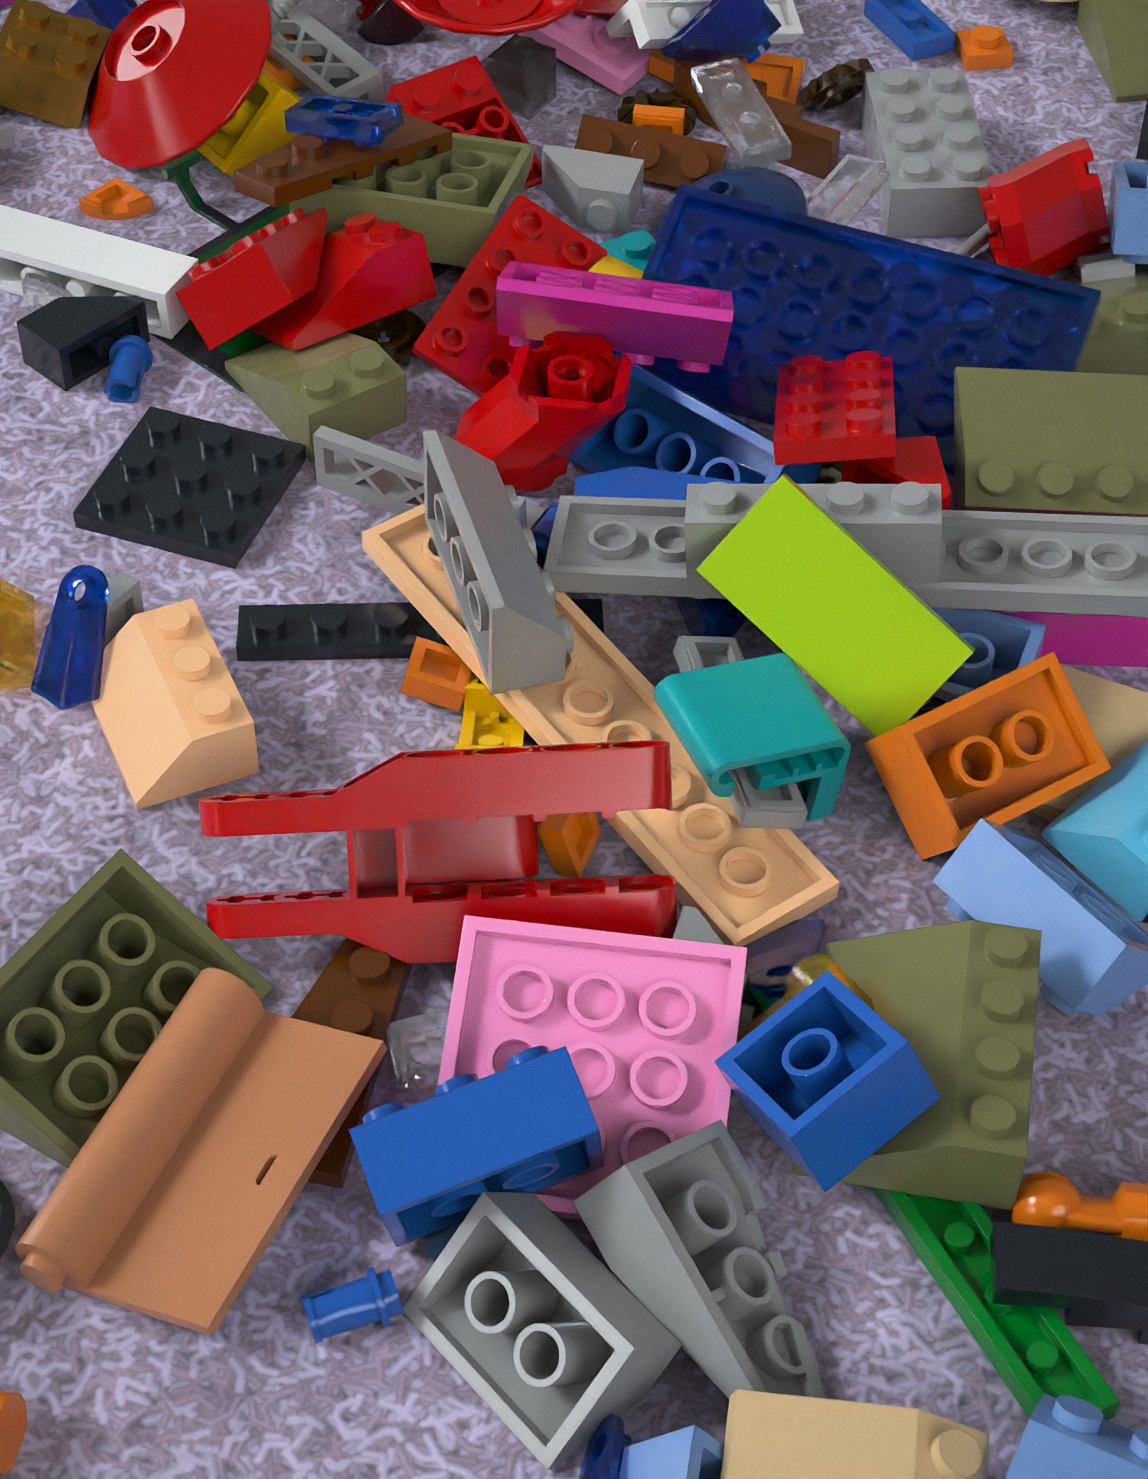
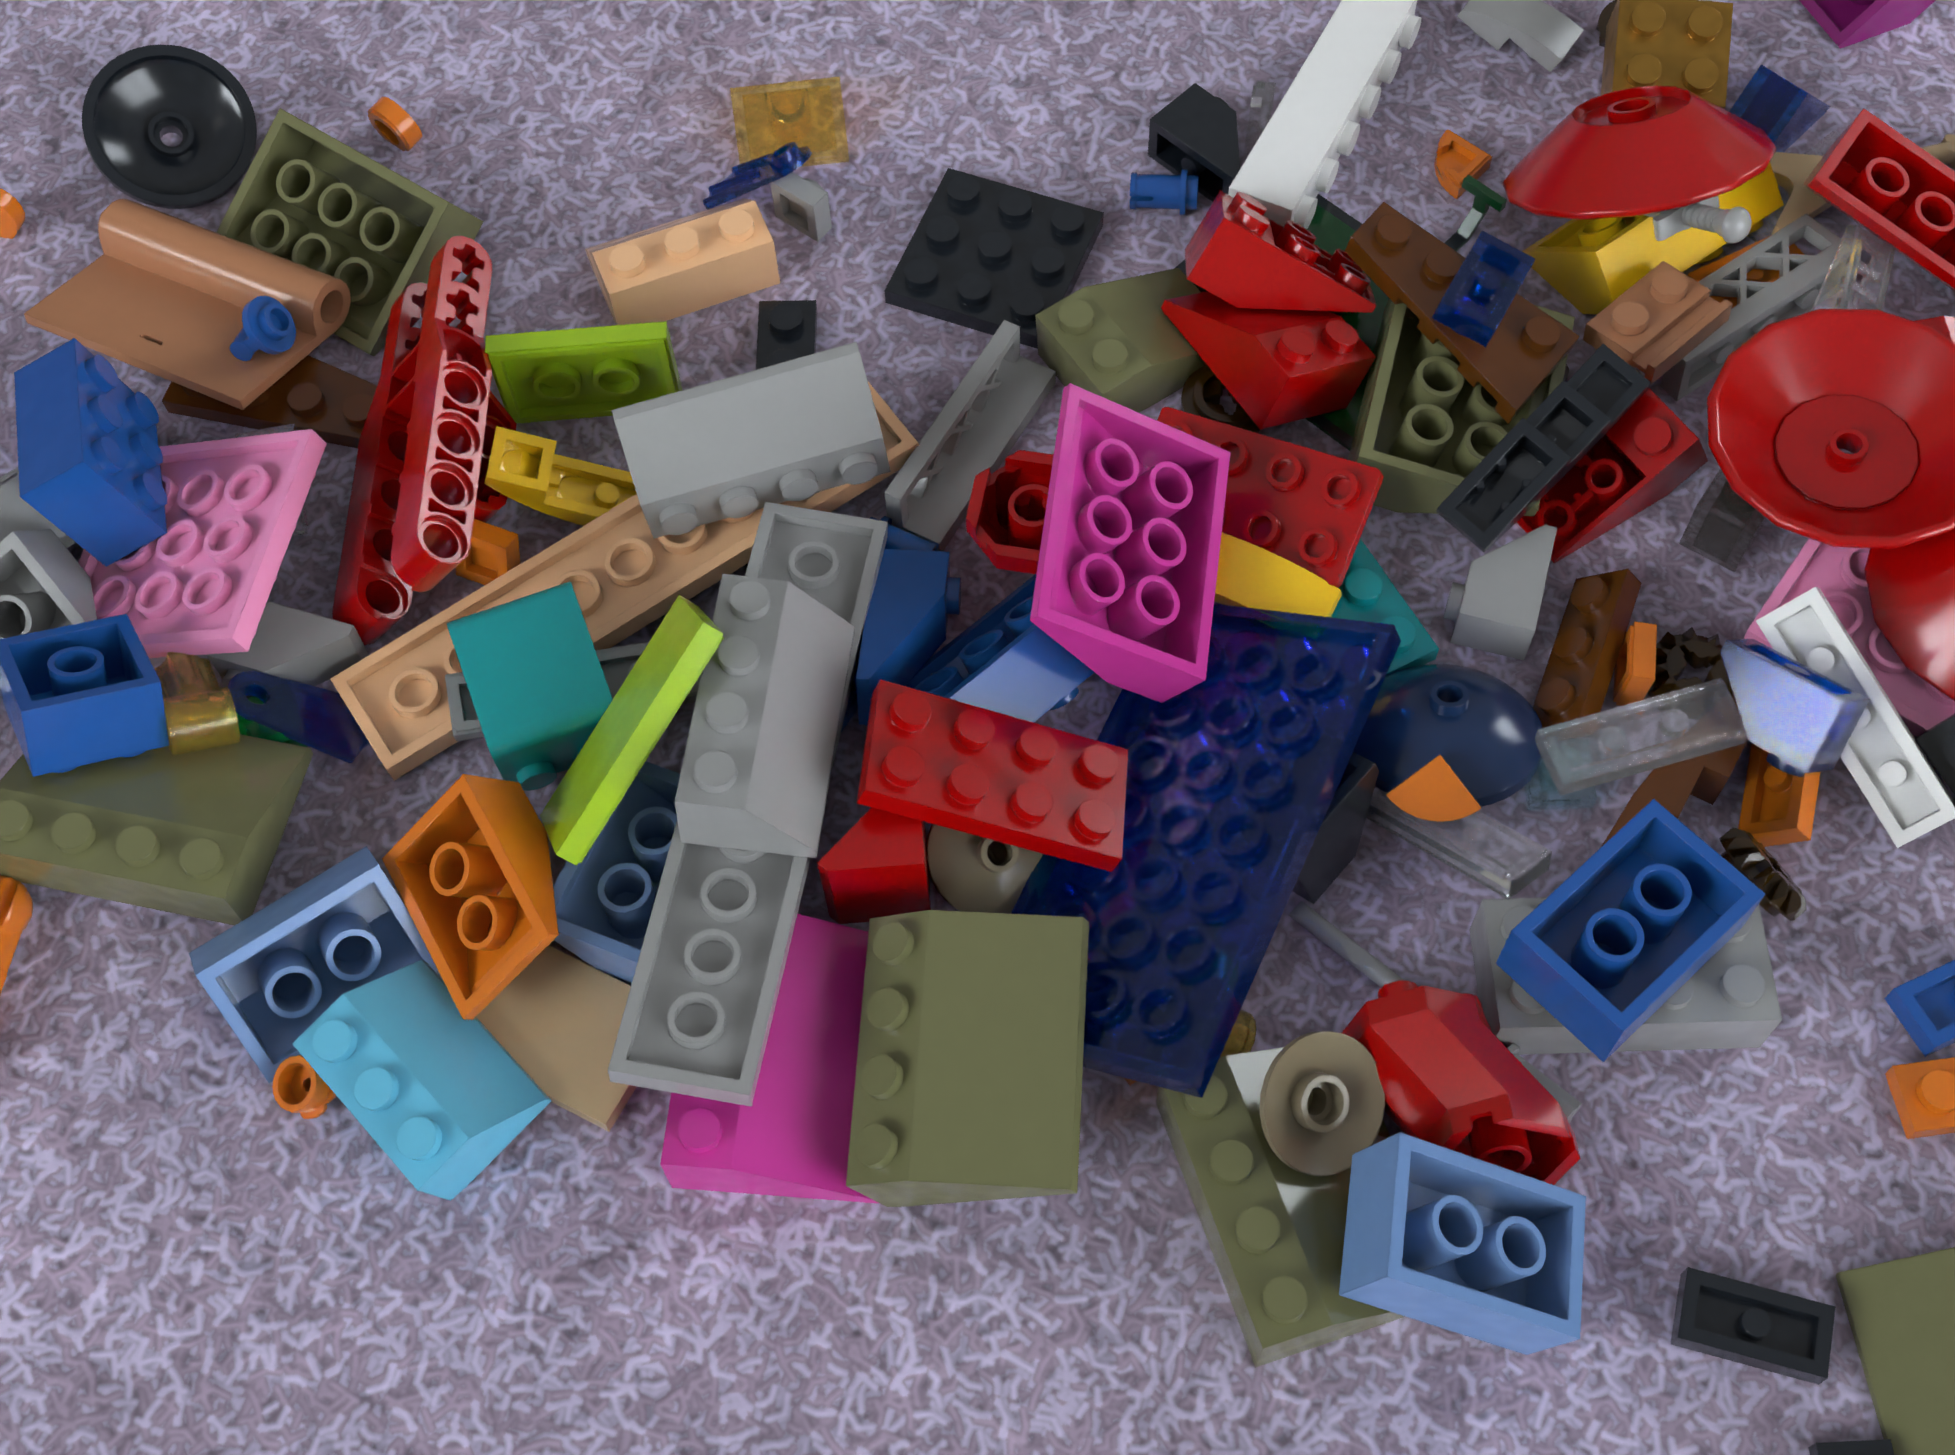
camera: 95 degrees right, 15 degrees up
(272, 1038) = (265, 327): none -> blue plate
(340, 71) = (1658, 321): none -> nougat plate
(351, 703) = (582, 370): none -> lime tile
(496, 126) = (1543, 448): none -> black slope
(806, 196) = (1434, 794): none -> orange tile
(934, 91) = (1628, 929): none -> blue brick
(1078, 267) = (1344, 1107): none -> dark tan dish

